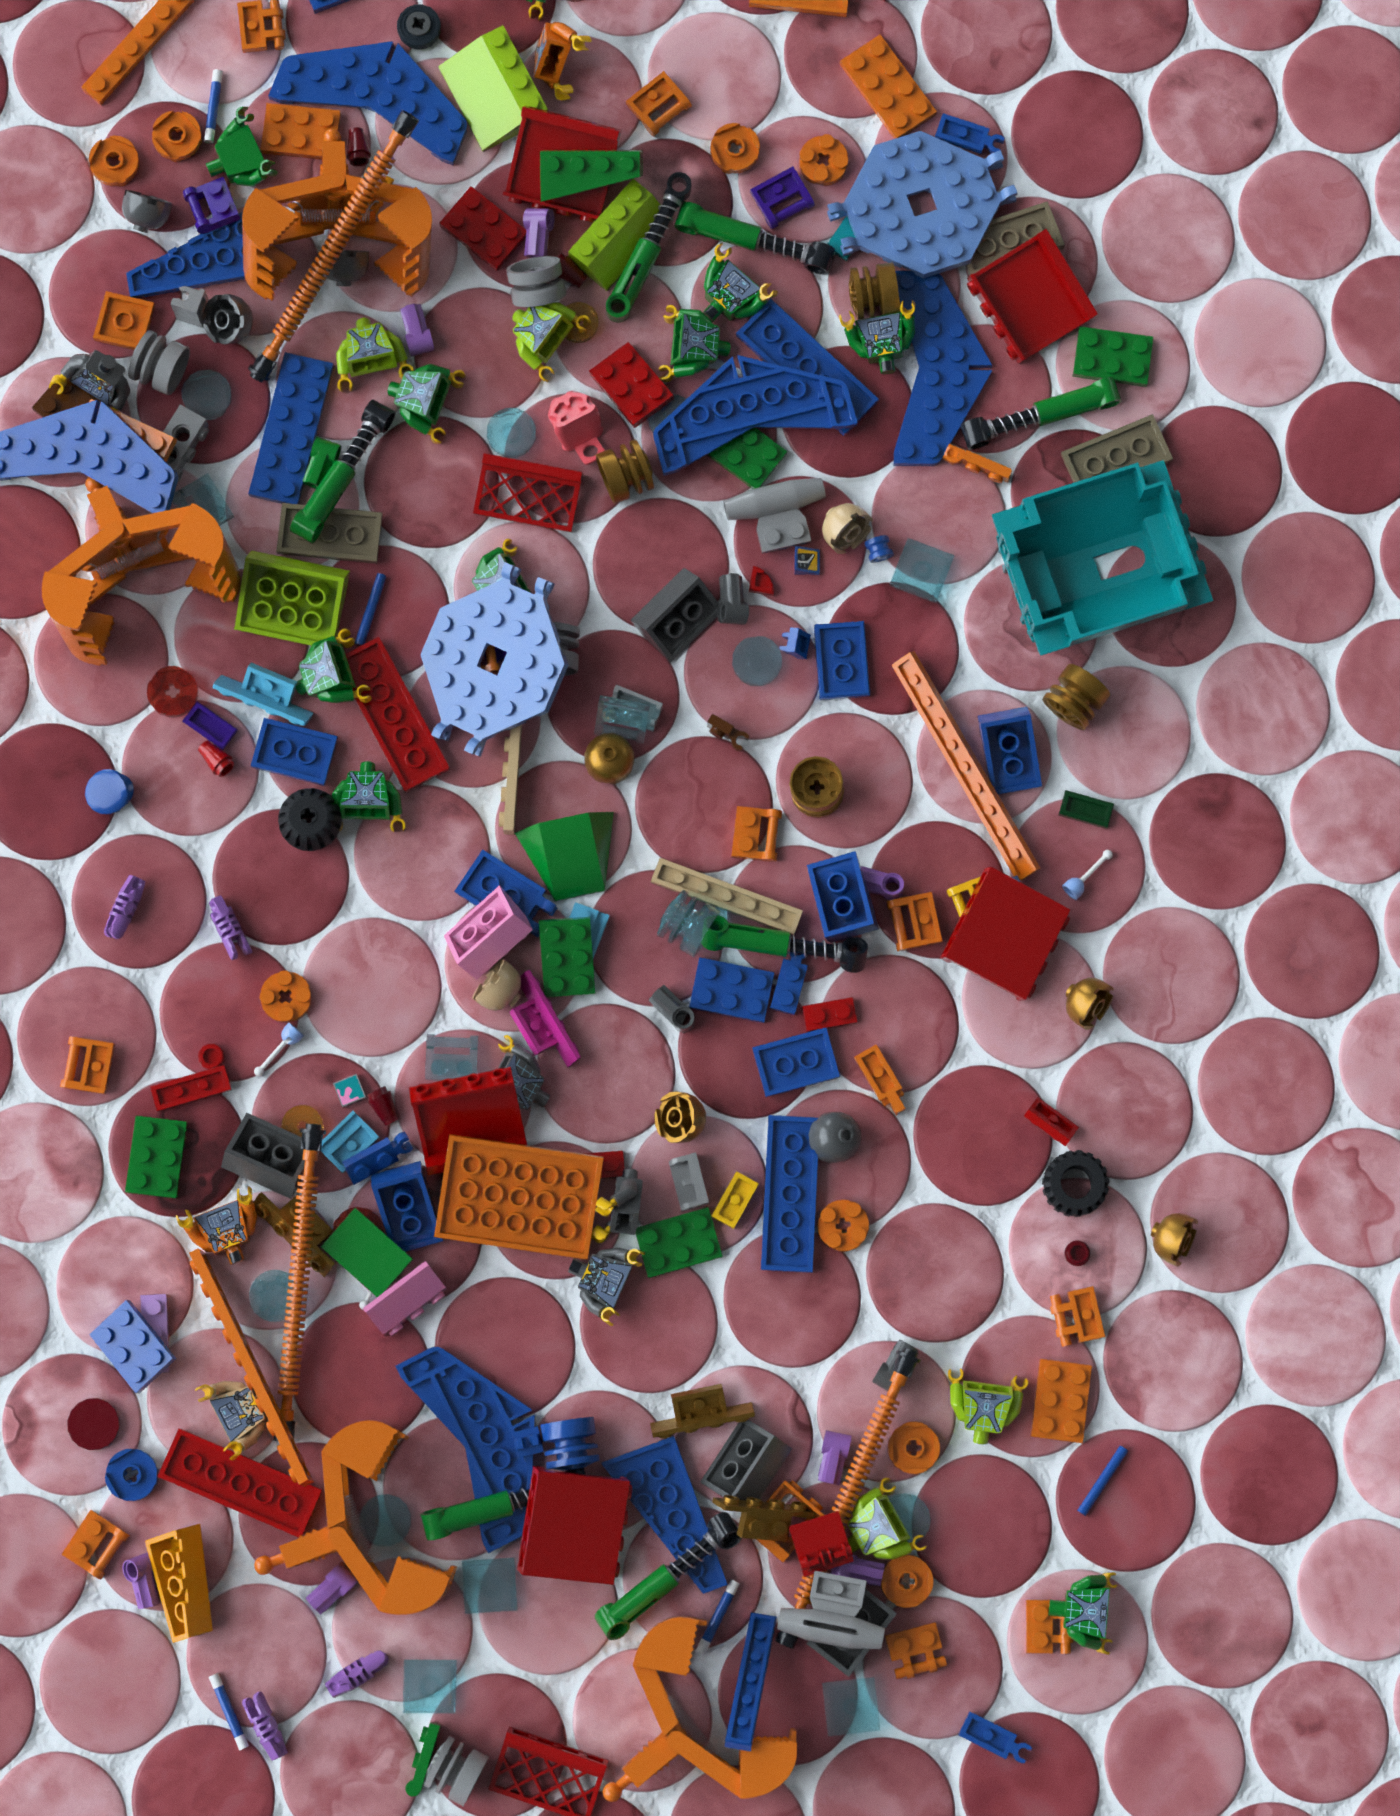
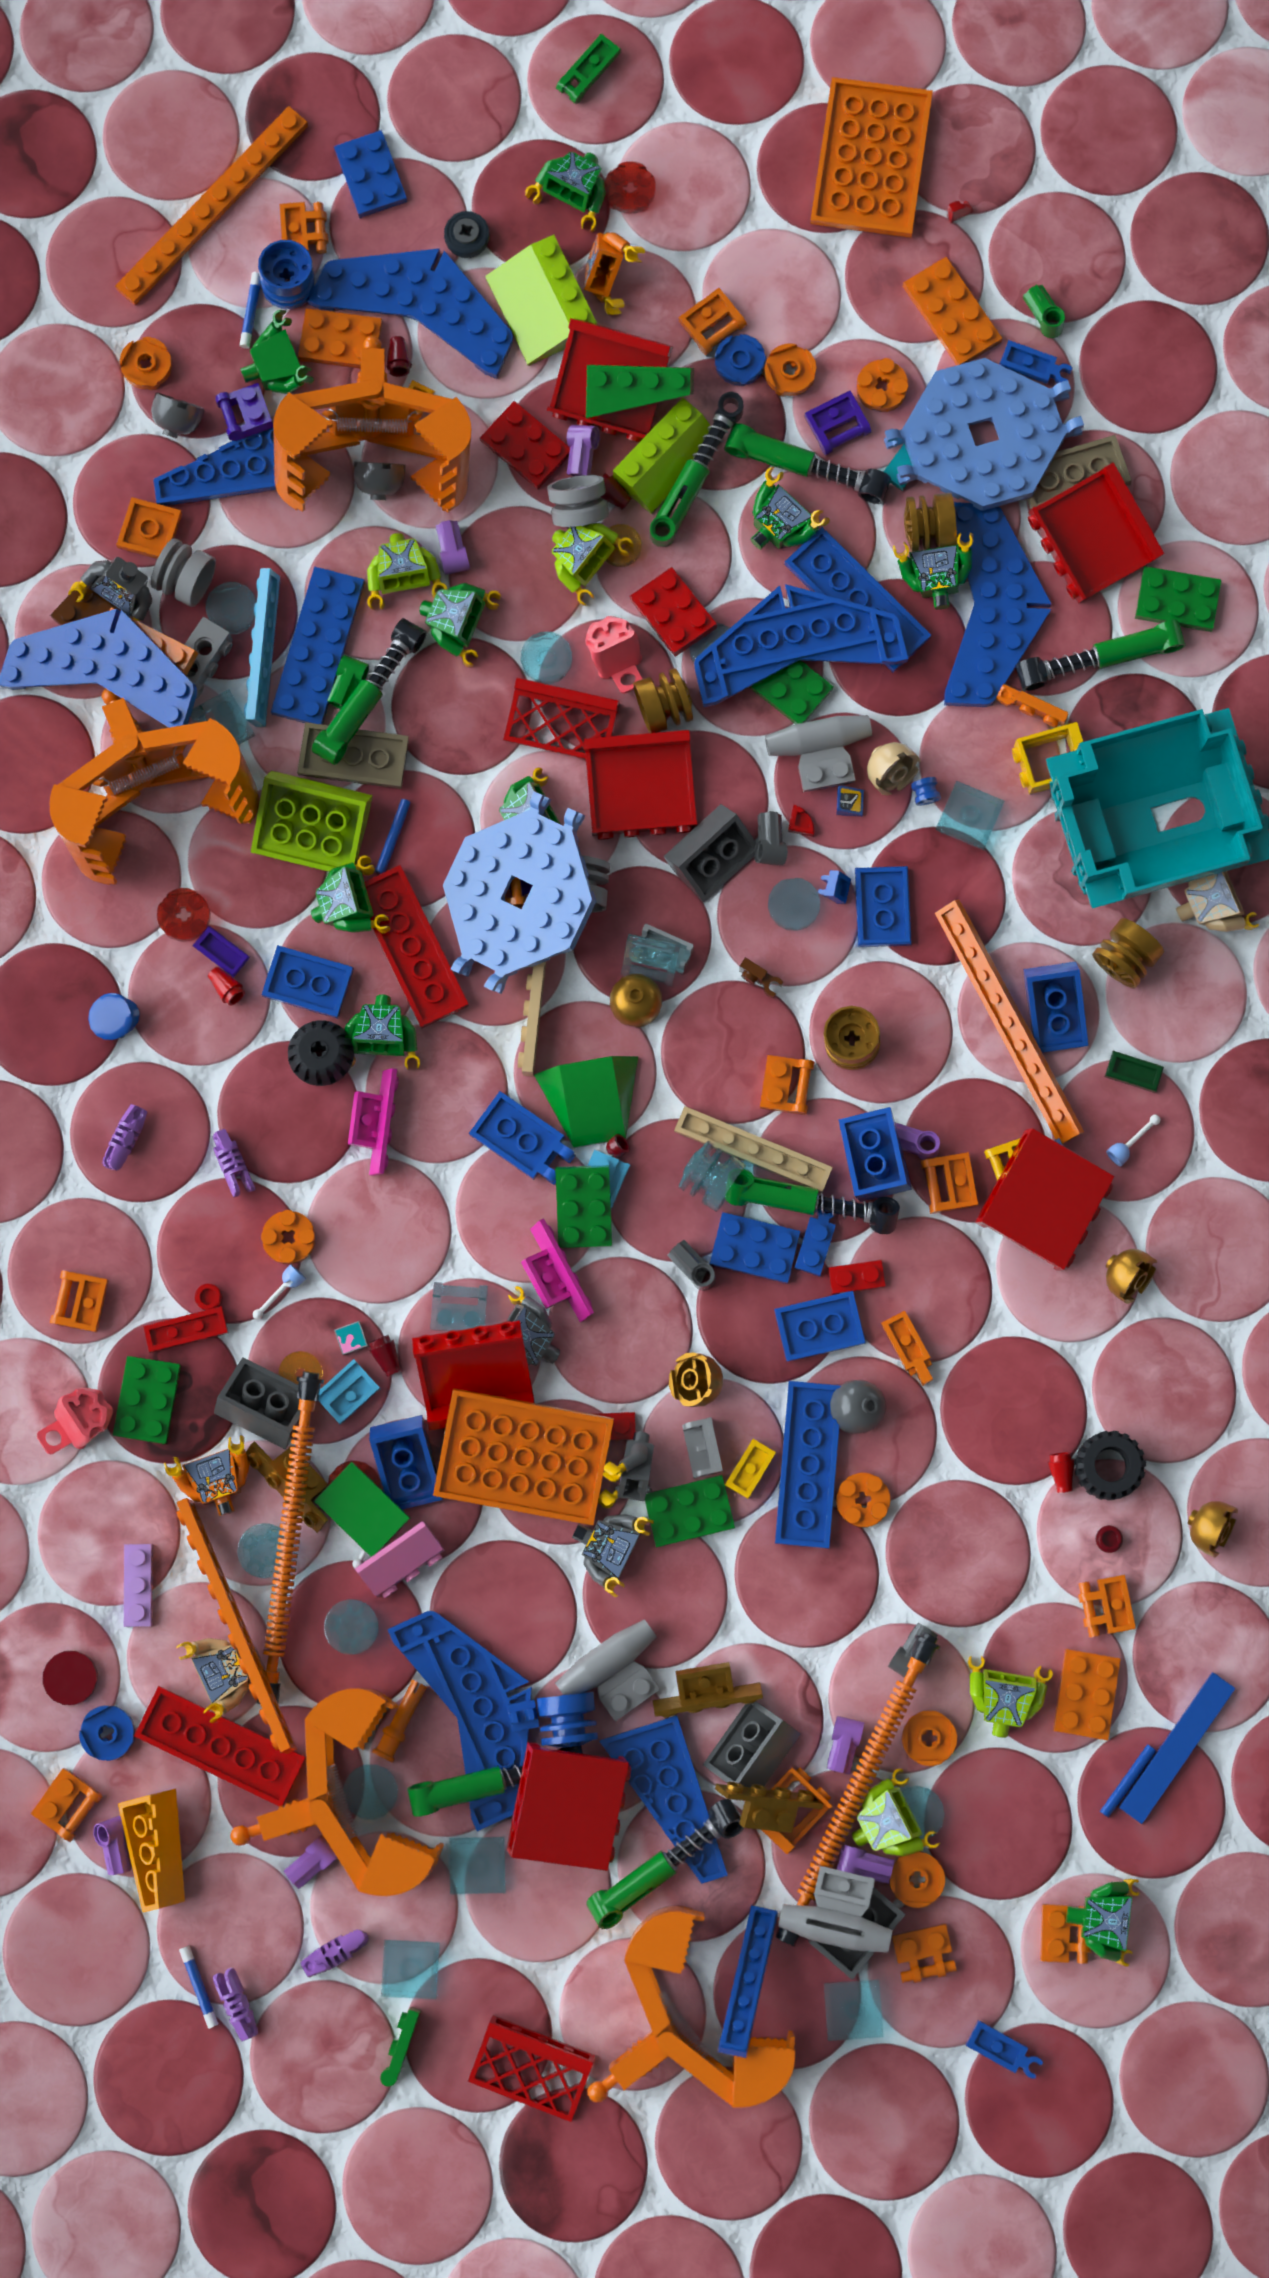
camera: 10 degrees right, 0 degrees up
(91, 1177) = (78, 1418): none -> coral piece
(132, 1346) = (113, 1598): plate -> none
(177, 149) = (214, 325): orange plate -> none
(192, 309) = (221, 518): light grey hinge -> none
(227, 319) = (256, 529): dark grey cylinder -> none
(238, 432) = (262, 650): none -> medium azure plate
(242, 59) = (286, 261): none -> blue wheel
(266, 360) = (294, 574): orange hose -> none
(266, 691) = (280, 917): medium azure bracket -> none
(360, 1364) = (351, 1626): none -> clear light blue tile
(361, 882) = (372, 1120): none -> dark pink bracket
(376, 1157) = (376, 1409): blue plate -> none
(405, 1463) = (394, 1733): none -> orange pin
(455, 1770) = (433, 2061): light grey wheel -> none
(487, 933) = (501, 1178): bright pink slope -> none
(499, 988) = (511, 1236): tan cylinder -> none
(597, 898) = (617, 1146): none -> dark red hinge
(606, 551) = (640, 784): none -> red panel
(612, 1397) = (612, 1669): none -> light grey plate
(686, 140) = (740, 360): none -> blue tile
(693, 343) = (740, 570): green torso -> none
(717, 1617) = (716, 1908): blue bar -> none
(821, 1543) = (828, 1837): red hinge -> none
(975, 83) = (1045, 309): none -> green piece
(1014, 487) = (1069, 731): none -> yellow window
(1030, 1189) = (1062, 1470): none -> red cone
(1051, 1121) = (1086, 1399): red plate -> none
(1130, 444) = (1187, 692): dark tan plate -> none
(1147, 1447) = (1176, 1748): none -> blue tile
(1157, 647) = (1215, 904): none -> tan torso

